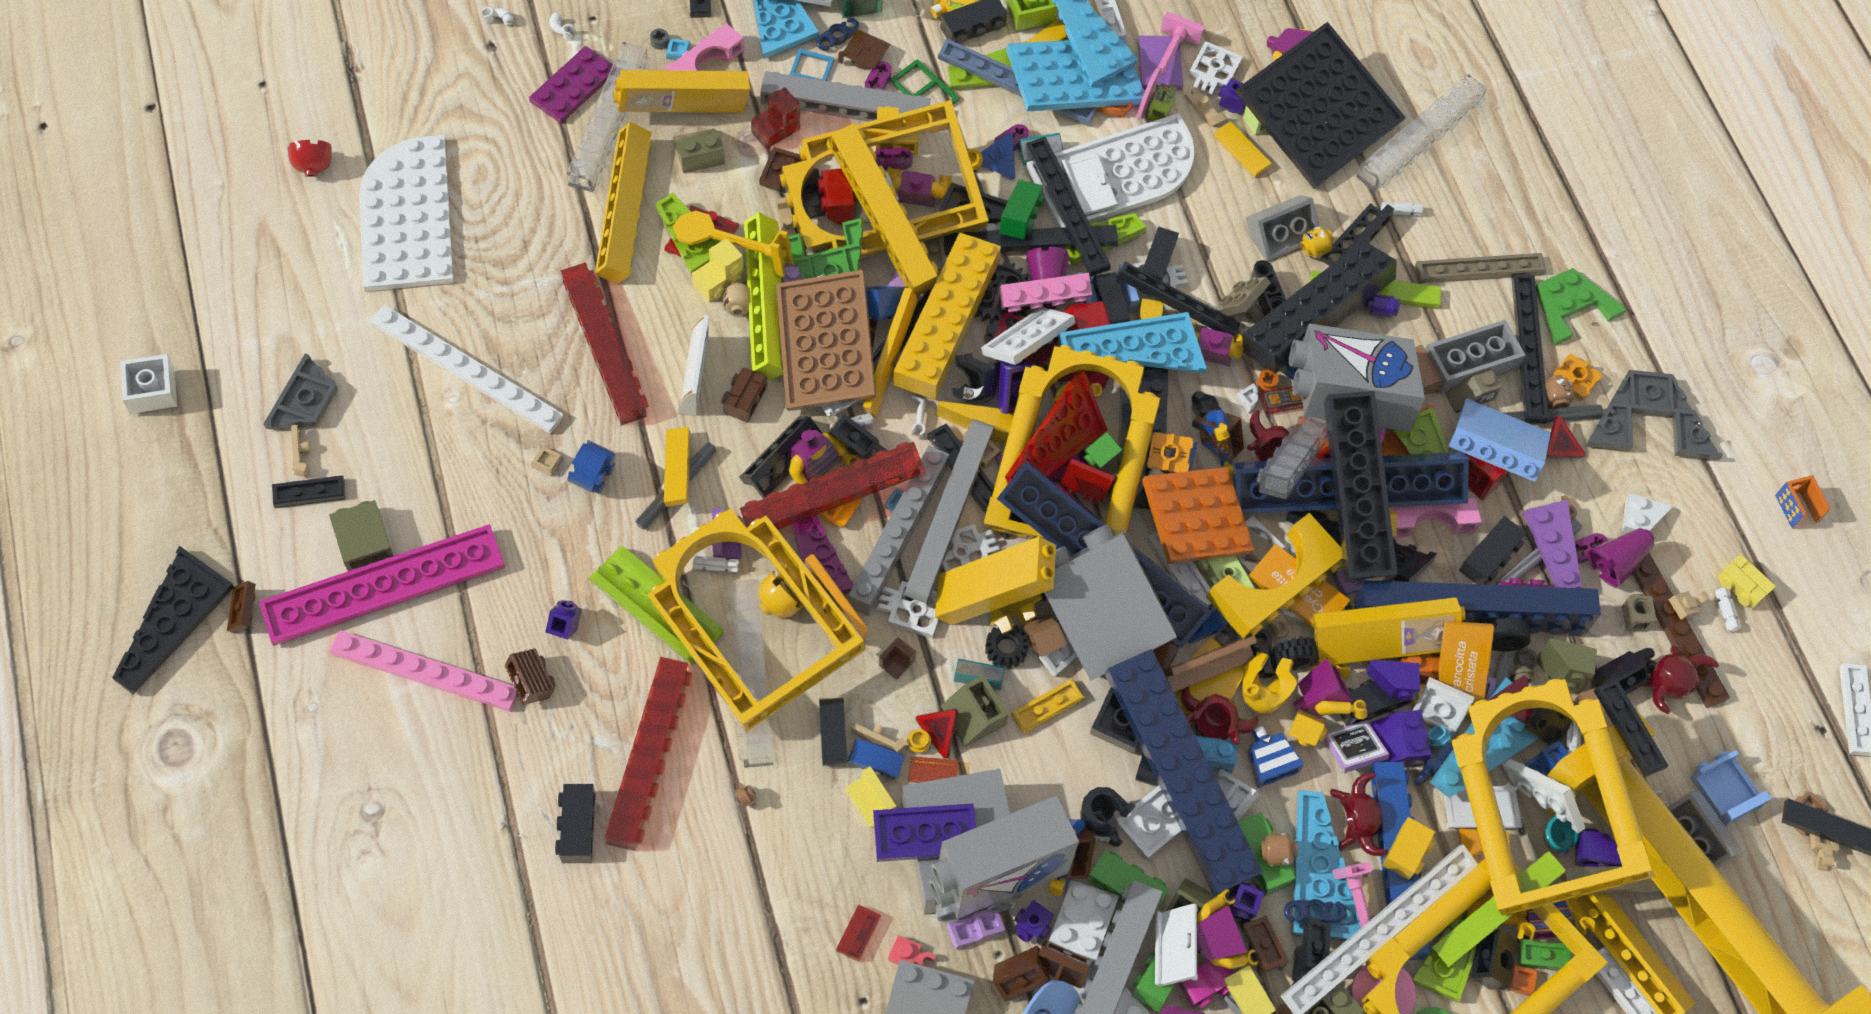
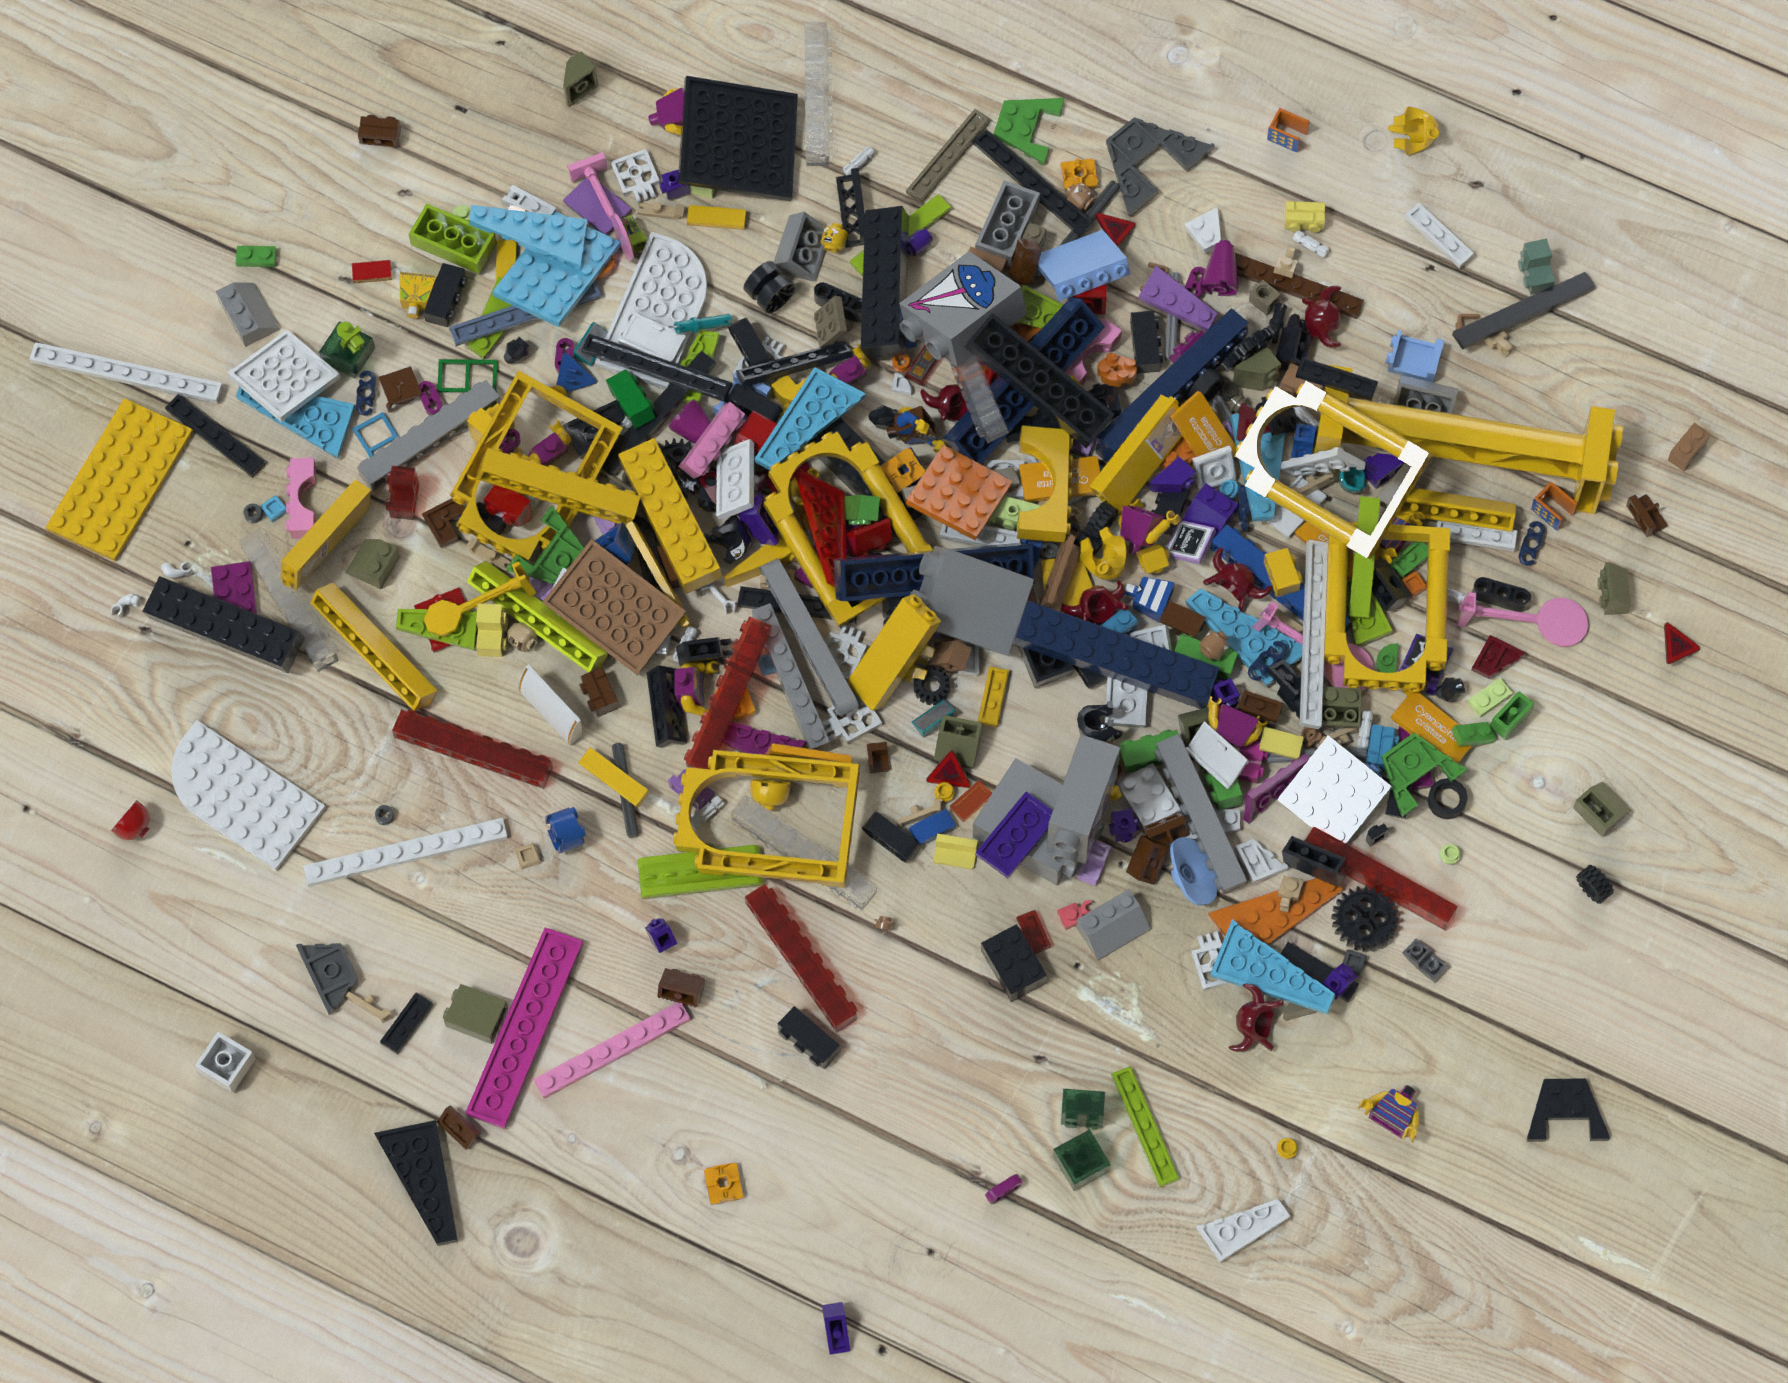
camera: 40 degrees left, 5 degrees up
(372, 883) = (712, 1178): none -> light orange piece
(485, 321) = (384, 808): none -> dark grey bush
(539, 87) = (223, 624): none -> black brick
(809, 940) = (1013, 963): none -> black brick
(979, 103) = (516, 351): none -> black rock
(1133, 203) = (695, 324): none -> teal pin
(1223, 228) = (769, 287): none -> black wheel
(1277, 803) = (1182, 619): none -> reddish brown panel
(1443, 550) = (1126, 370): none -> orange plate
(1455, 395) = (1025, 261): none -> reddish brown brick
(1519, 805) = (1314, 484): none -> tan piece
(1592, 635) = (1253, 344): none -> black gear
(1628, 643) = (1278, 320): none -> black pin

